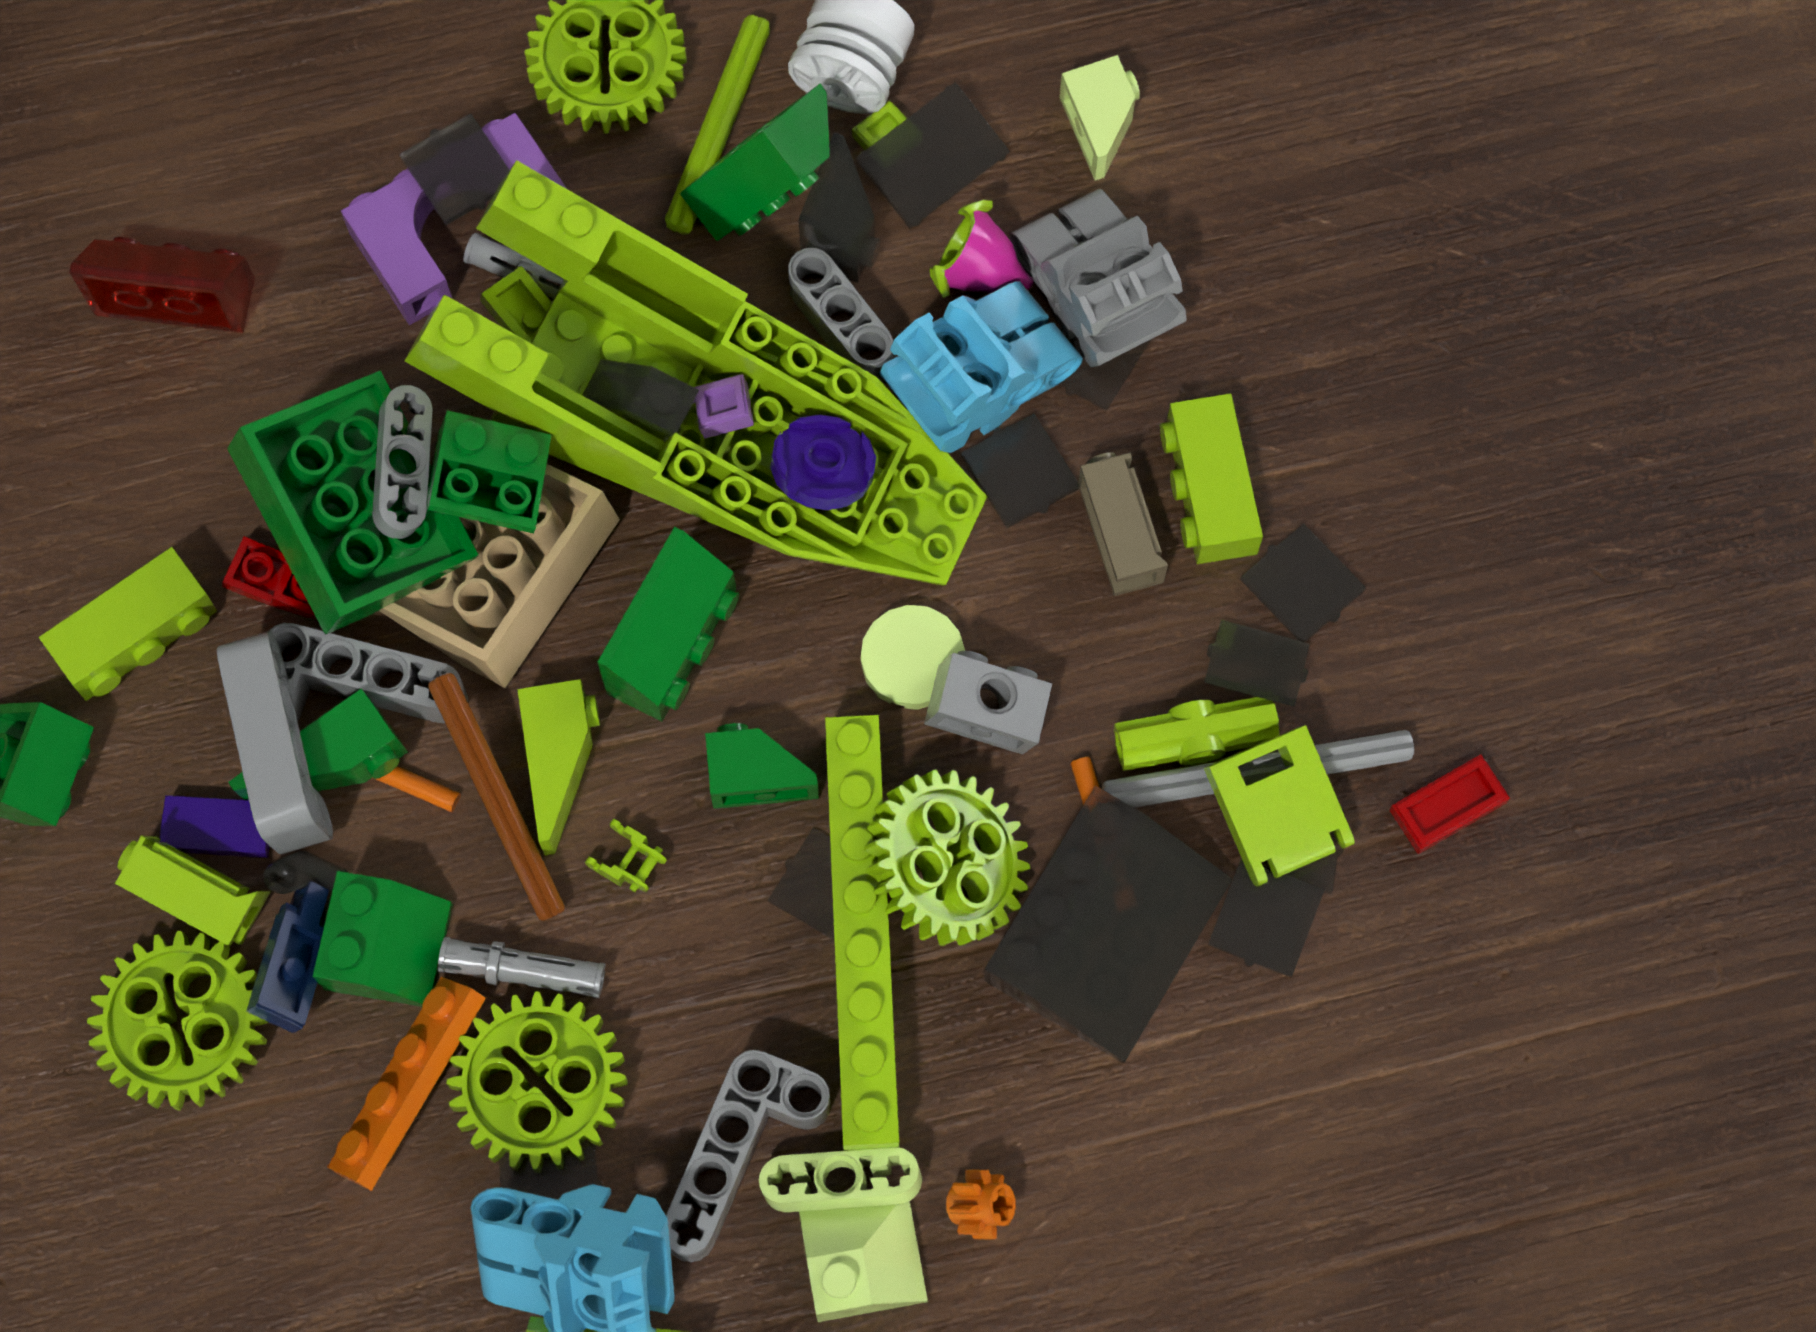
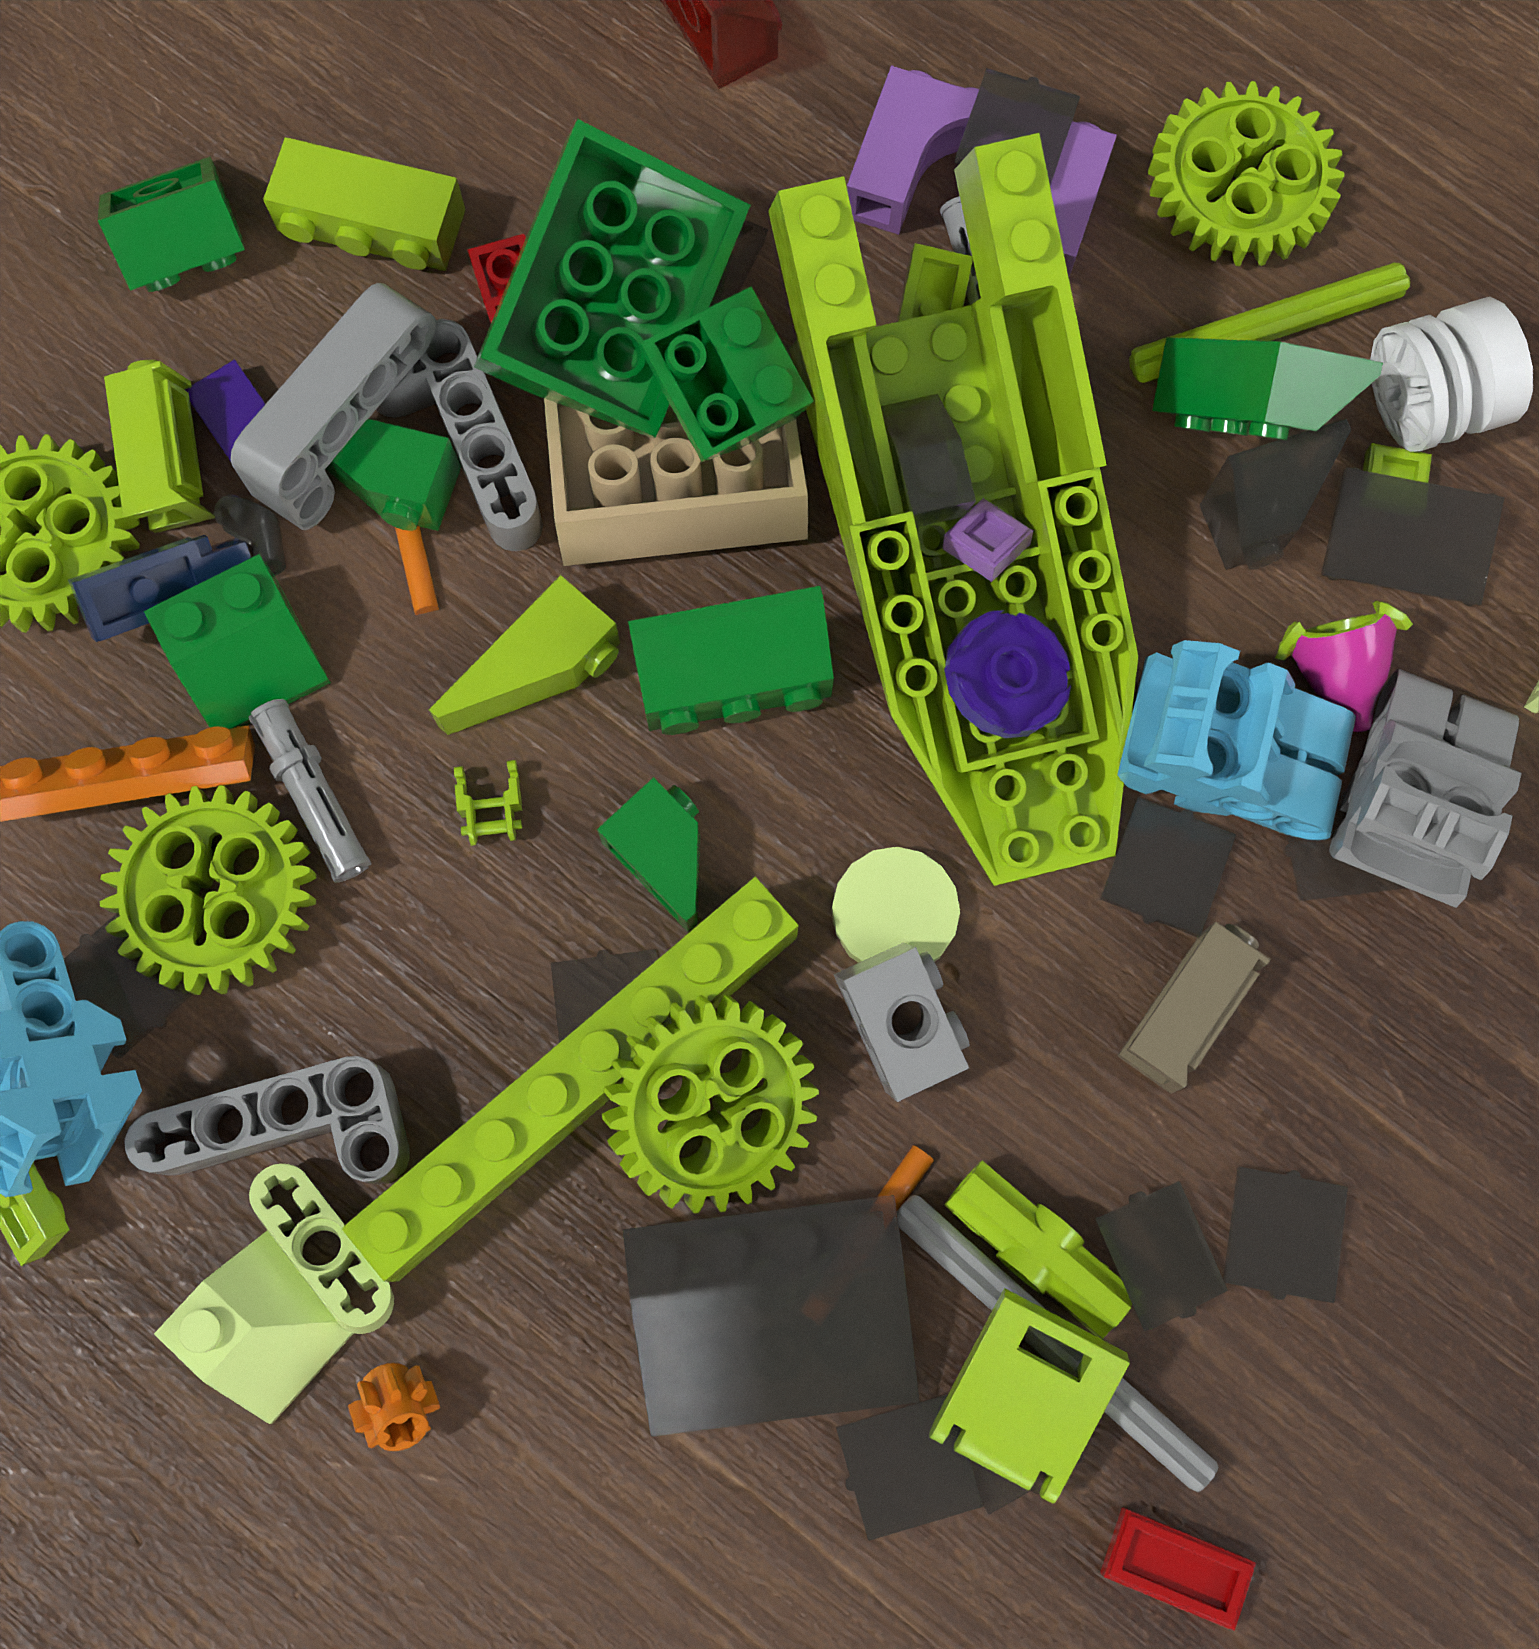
camera: 50 degrees right, 5 degrees up
(389, 426) = (705, 252): light grey beam -> none
(496, 796) = (446, 638): dark orange axle -> none
(835, 295) = (1185, 553): light grey beam -> none
(1211, 479) = (1315, 1060): lime brick -> none

